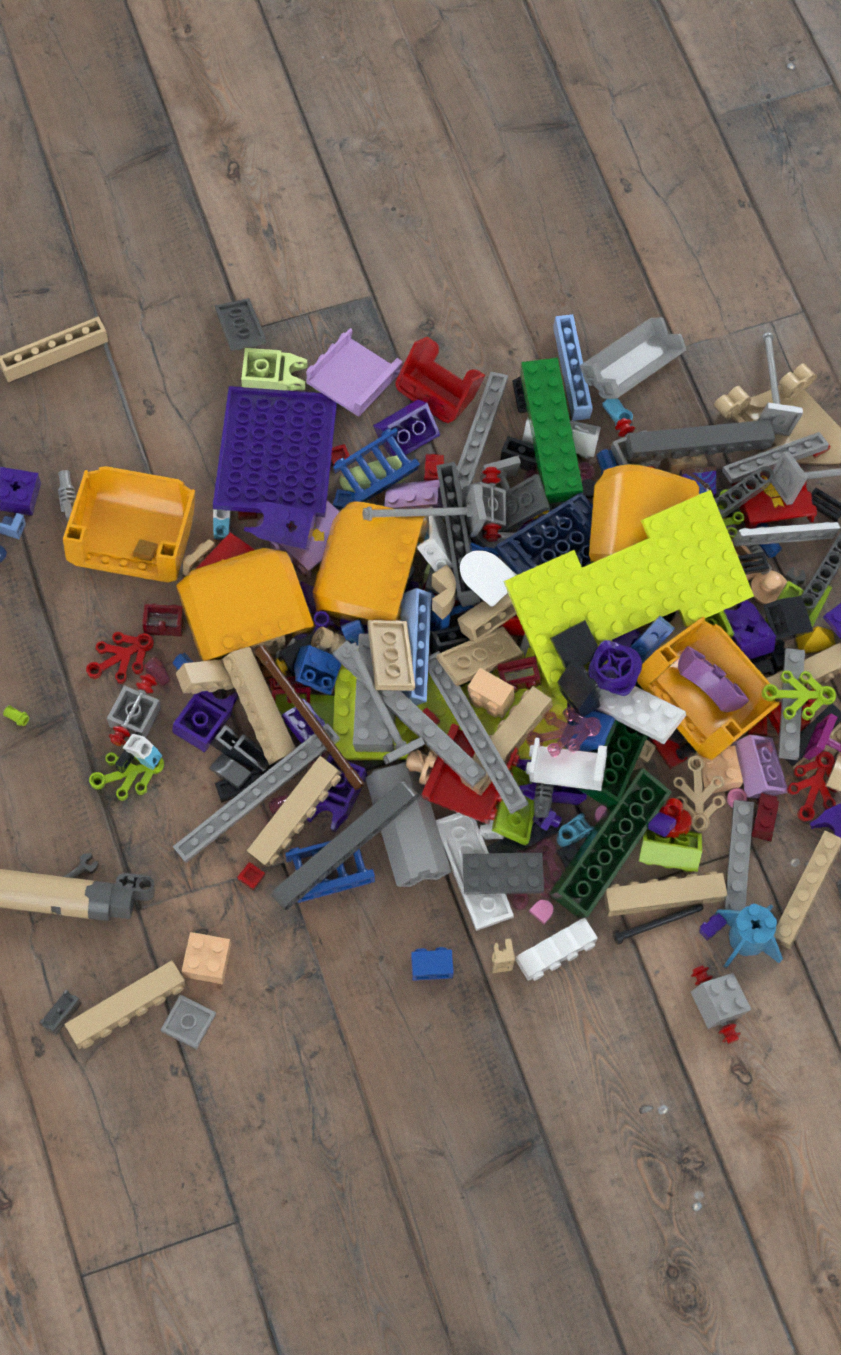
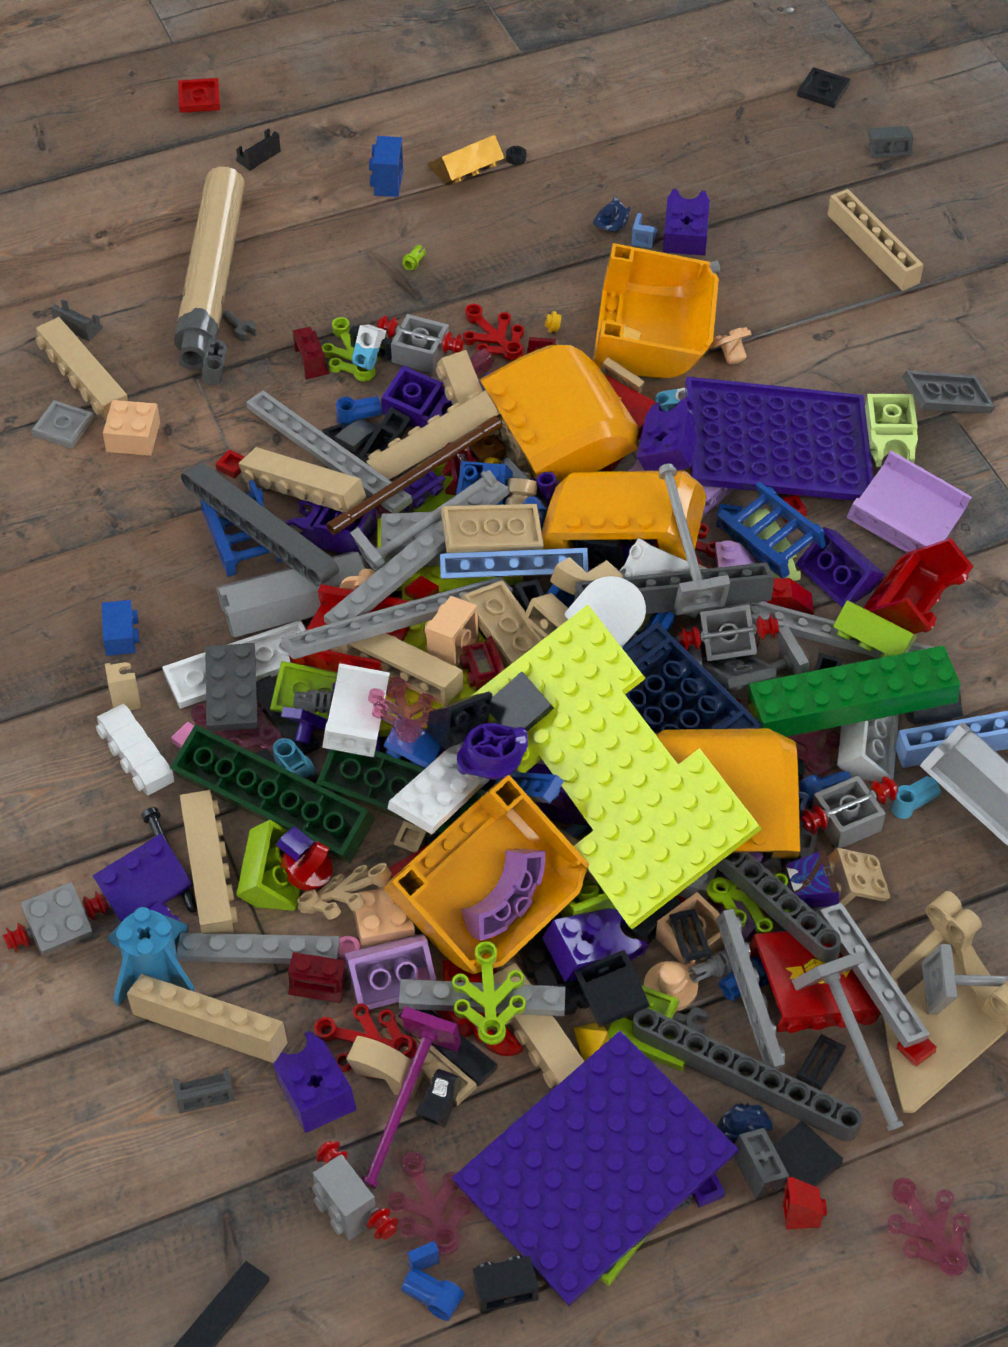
camera: 90 degrees right, 15 degrees down
(114, 607) = (553, 322): none -> yellow plate
(129, 805) = (311, 351): none -> dark red window
(162, 466) = (732, 345): none -> light nougat plate
(202, 769) = (351, 410): none -> blue piece
(484, 410) = (873, 631): none -> lime slope
(682, 939) = (143, 878): none -> dark purple slope
(700, 440) = (878, 876): dark grey brick -> none

